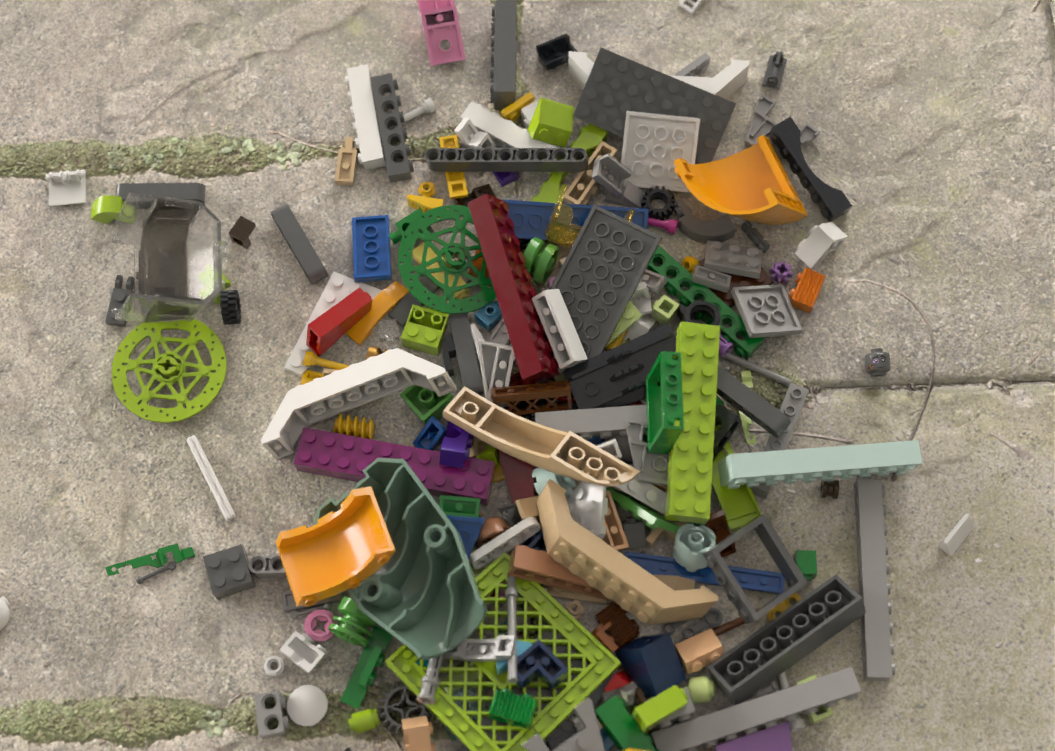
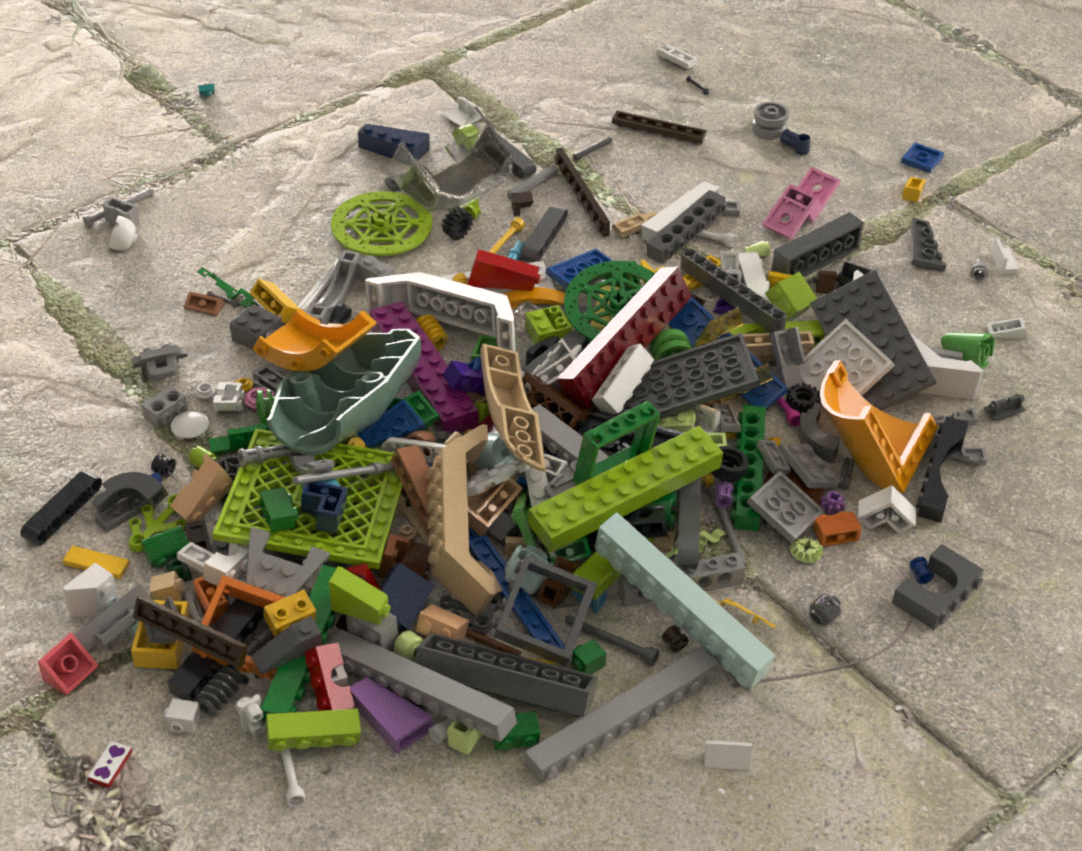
camera: 50 degrees right, 25 degrees down
(61, 278) = (387, 139): none -> dark blue wedge
(150, 594) = (204, 303): none -> nougat slope
(208, 532) = (274, 300): none -> yellow brick
(210, 685) = (167, 355): none -> light grey piece
(212, 117) = (586, 151): none -> dark grey bar
(217, 199) = (534, 180): none -> light grey axle
(232, 42) = (659, 127): none -> dark brown plate
(236, 474) = (341, 282): none -> light grey arch
(239, 421) = (372, 268): none -> light grey brick
(268, 171) = (582, 191): none -> dark brown plate
(268, 258) = (516, 225): none -> yellow piece
(268, 488) = (341, 314): none -> black cone
(292, 621) = (247, 384): none -> yellow plate
(305, 287) = (515, 253): none -> medium azure pin
(387, 68) = (732, 208): none -> light grey tile
(461, 95) = (762, 248): none -> yellowish green cone
(539, 76) = (825, 281): none -> reddish brown slope
(699, 41) = (972, 345): none -> bright green cone
(805, 437) = (728, 601): none -> yellow piece
(817, 329) = (812, 555): none -> yellowish green gear
(829, 518) = (649, 655): none -> dark grey piece
(837, 659) = (524, 733): none -> green brick
(887, 266) = (922, 572): none -> clear blue bush
(916, 246) = (935, 607): none -> dark grey arch

